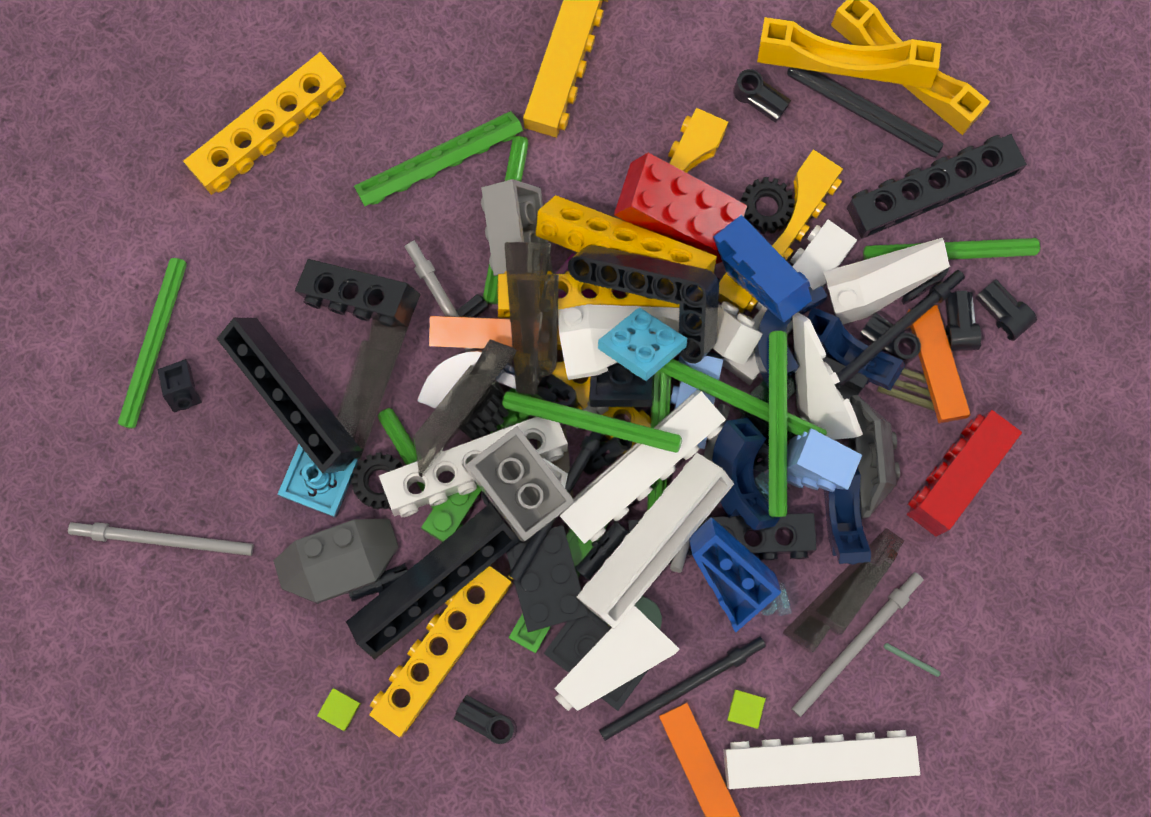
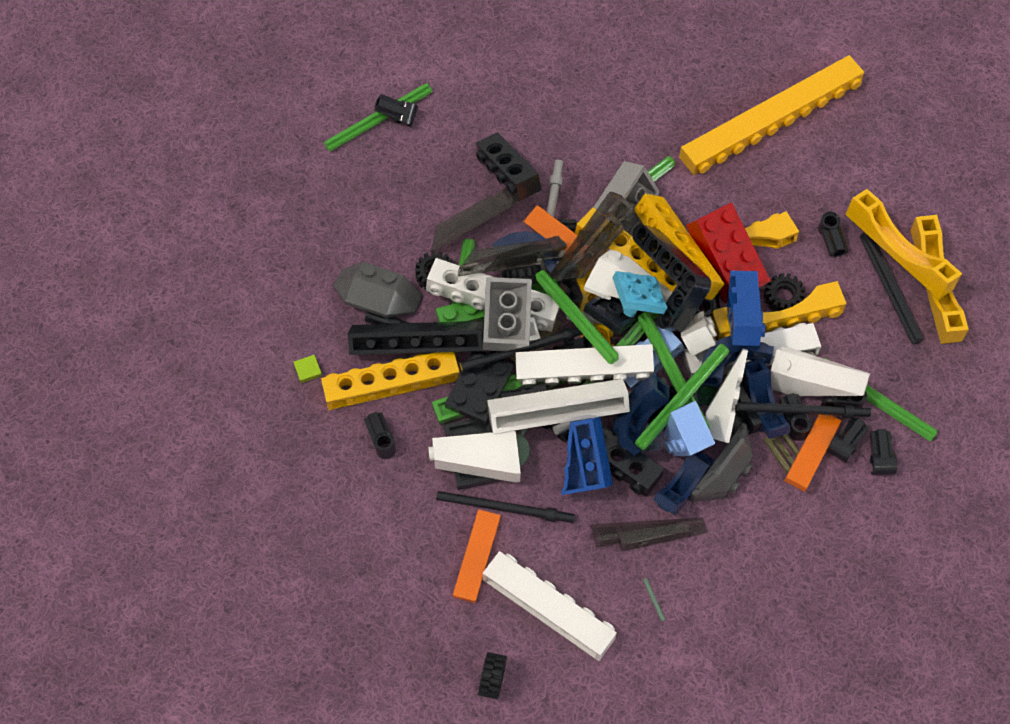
camera: 40 degrees right, 15 degrees down
(102, 532) = (268, 188): light grey bar -> none
(174, 318) = (399, 110): none -> black piece
(178, 386) = (371, 147): black bracket -> none
(270, 108) = (536, 54): yellow brick -> none
(289, 395) = (425, 190): black brick -> none
(298, 486) = (401, 239): medium azure plate -> none
(430, 162) = (607, 135): bright green plate -> none
(746, 709) = (531, 546): lime tile -> none
(780, 604) = (603, 502): clear light blue tile -> none
(897, 599) = (674, 559): light grey bar -> none
(964, 472) = (773, 514): red brick -> none
(1002, 153) = (906, 365): black brick -> none

